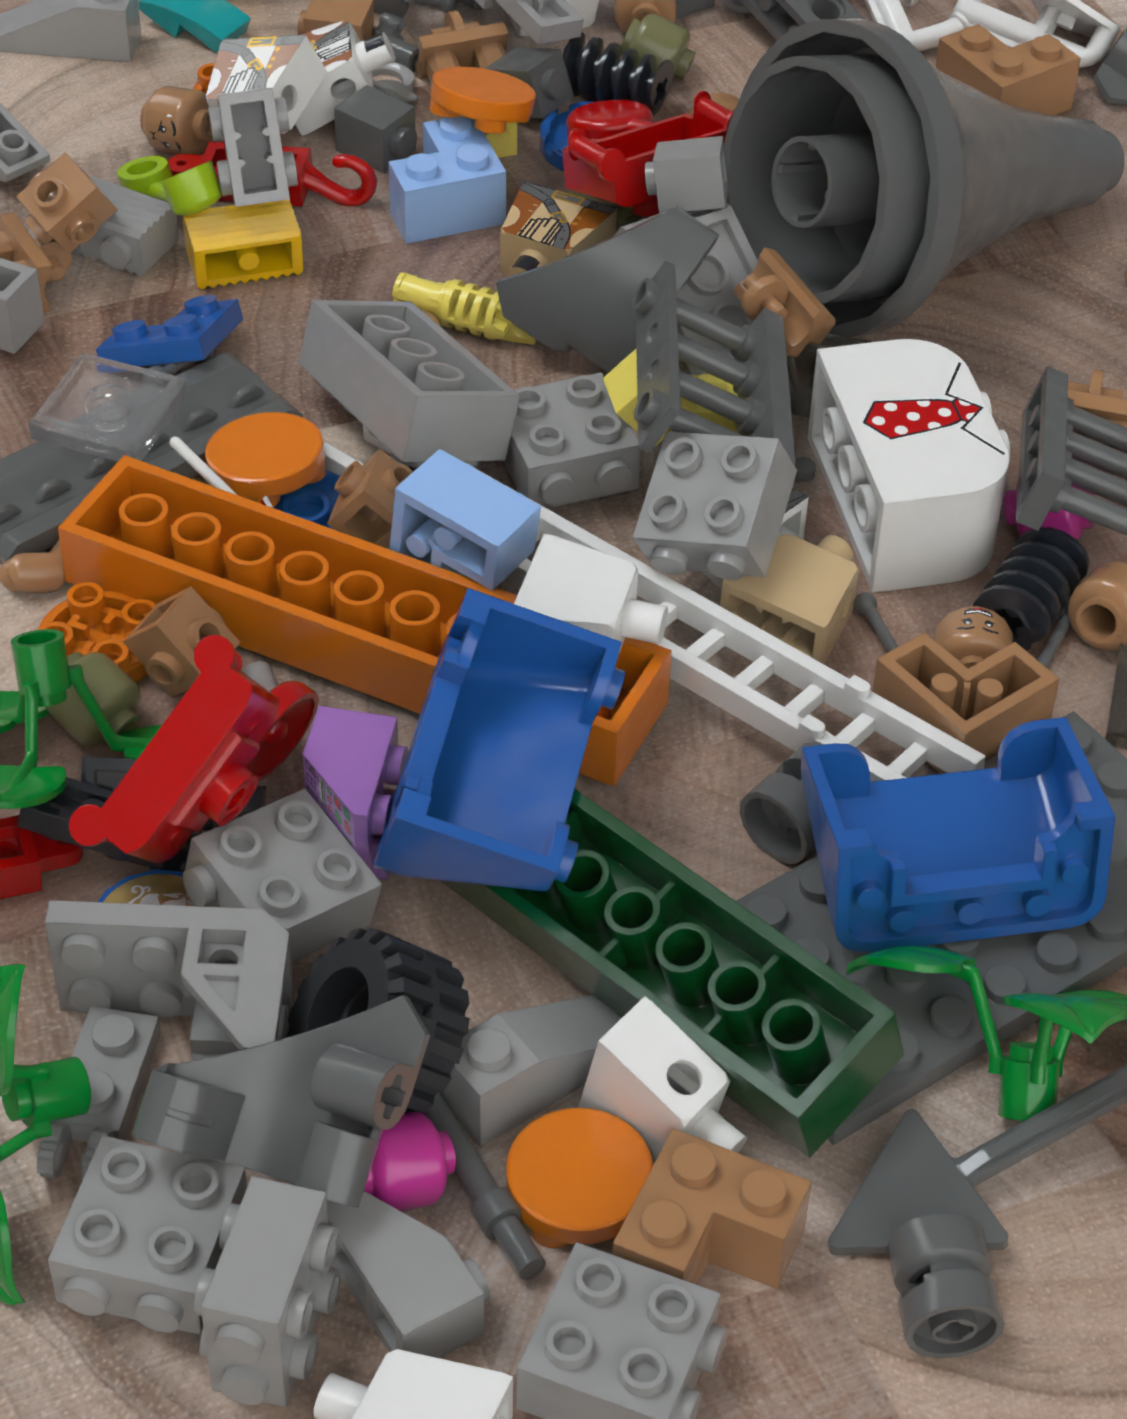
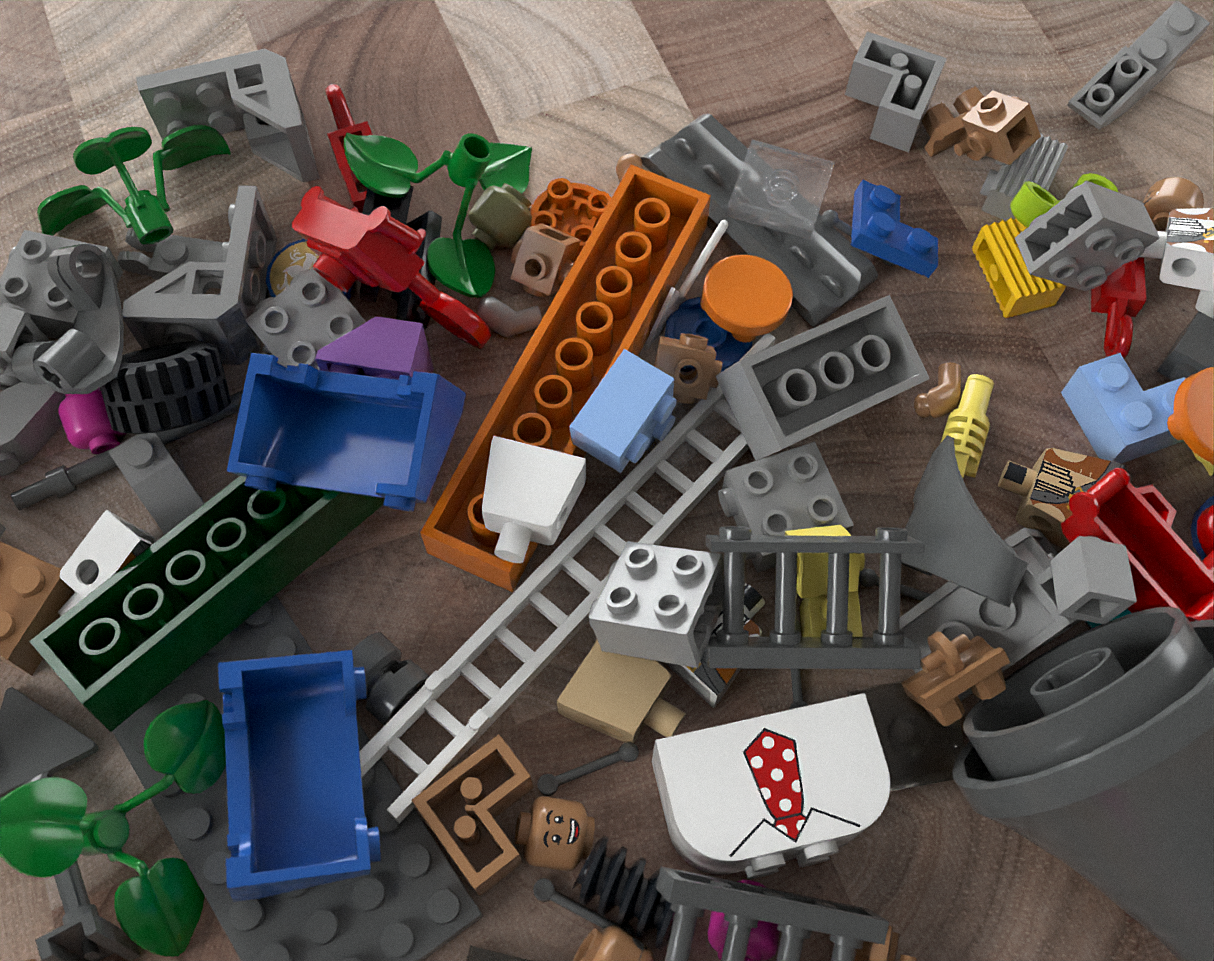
camera: 90 degrees right, 20 degrees up
(576, 1175) = (65, 518): orange tile -> none

